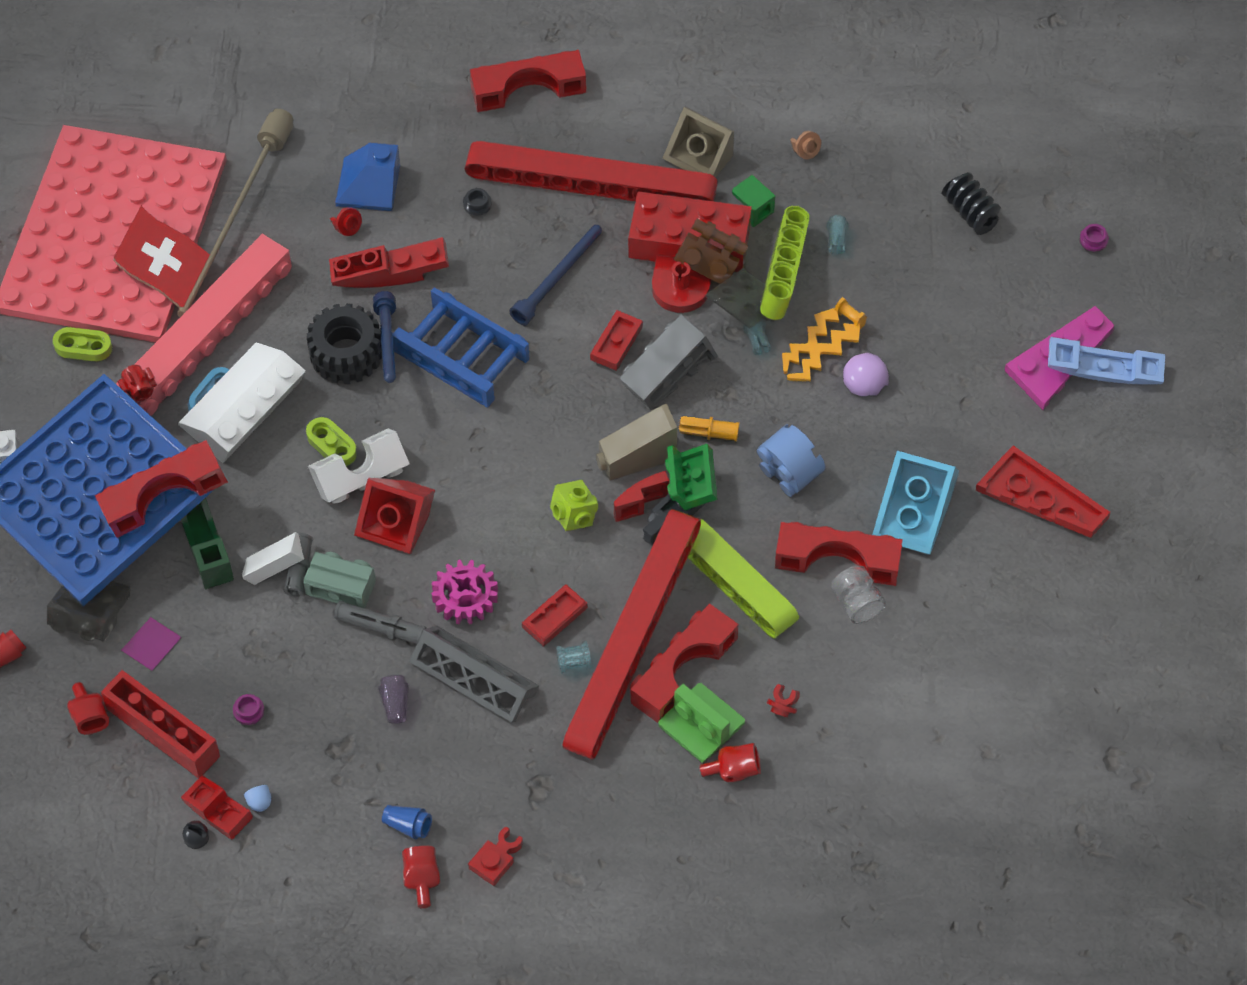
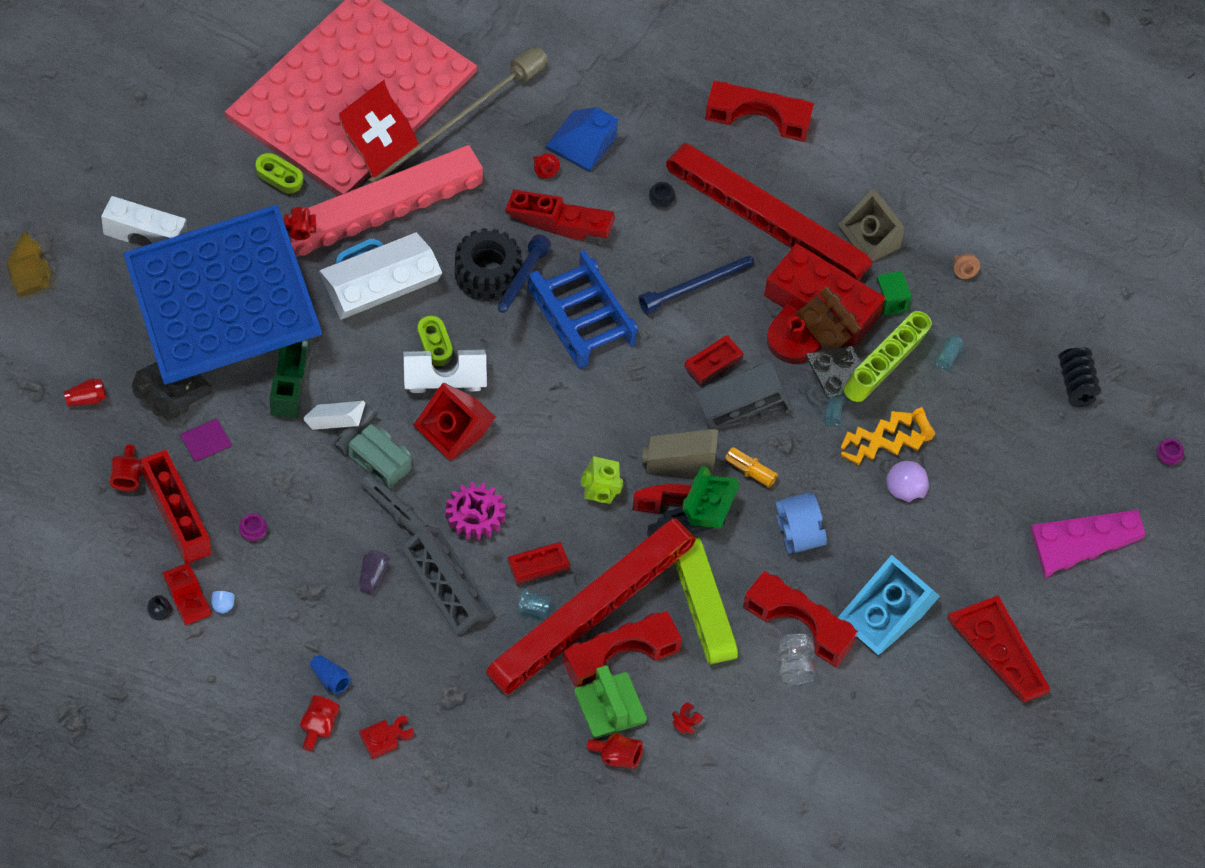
camera: 20 degrees right, 0 degrees up
(127, 502) = (238, 316): red arch -> none
(1104, 364) = (1117, 562): light blue slope -> none

